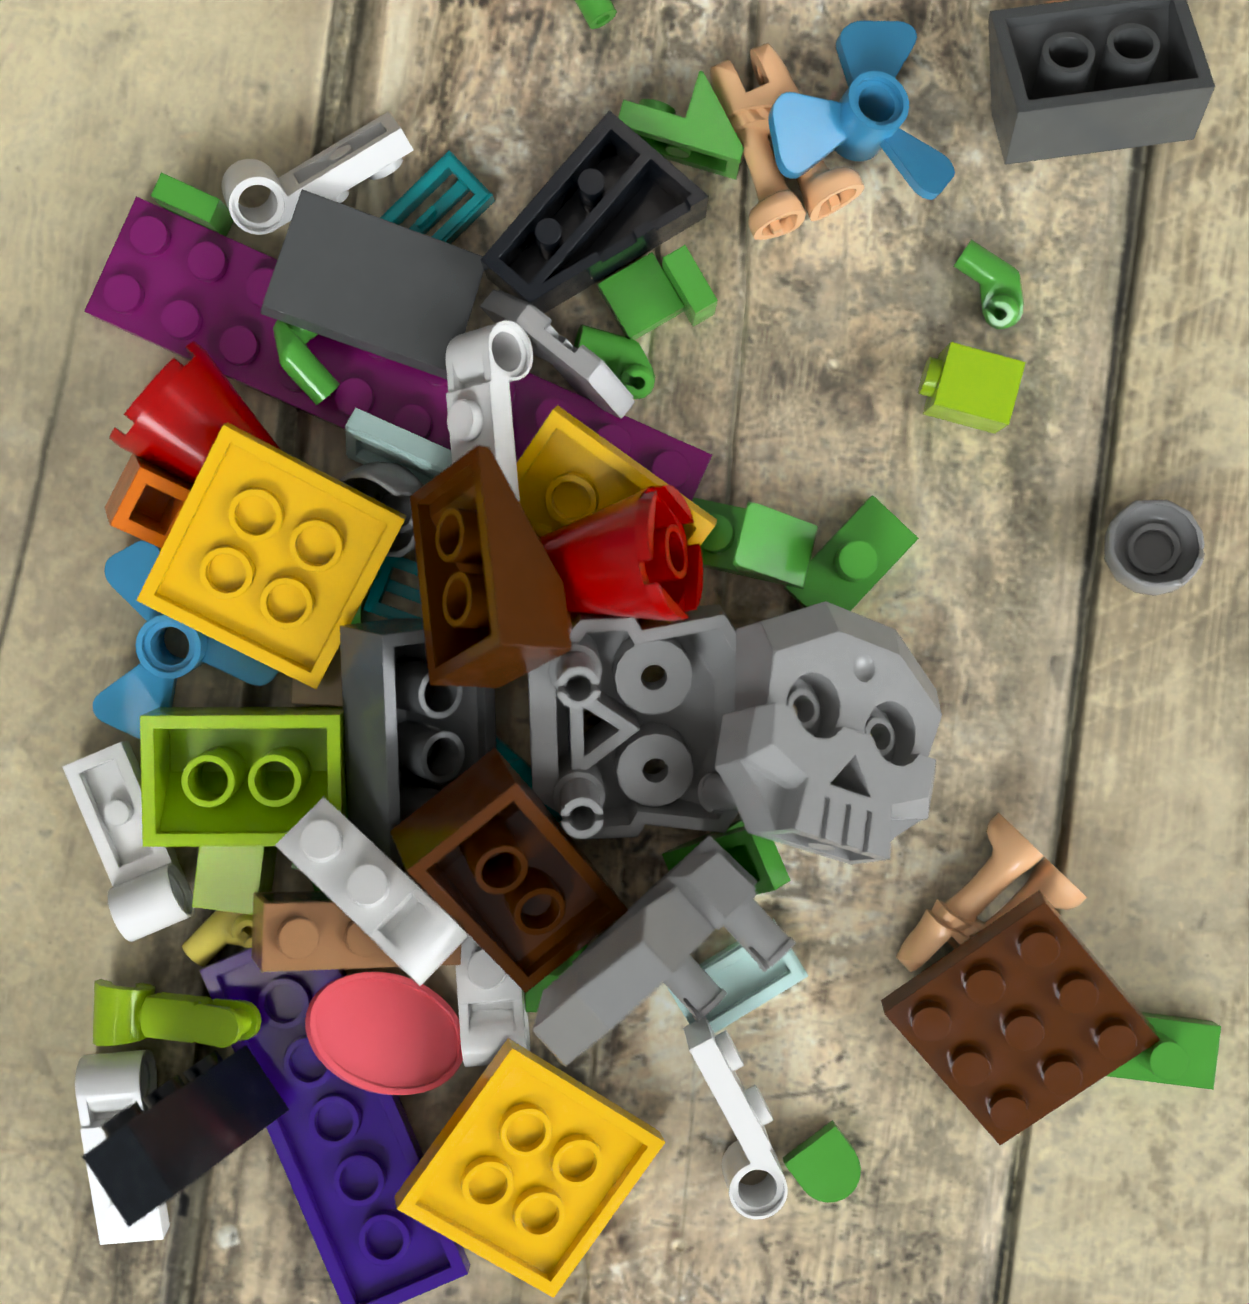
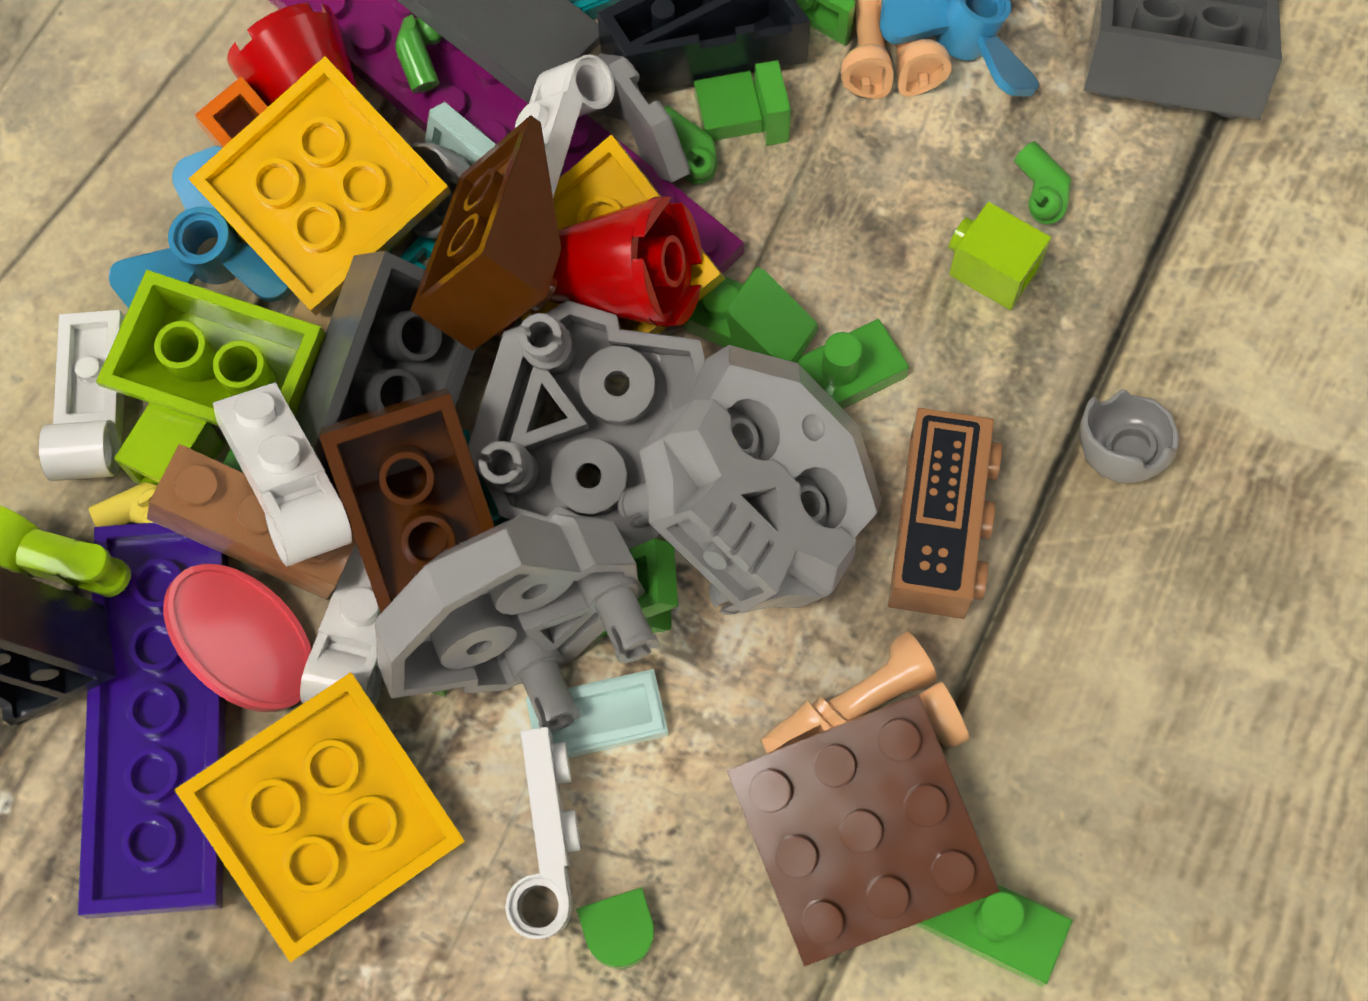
camera: 25 degrees right, 20 degrees down
(999, 684) = (944, 514): none -> brick

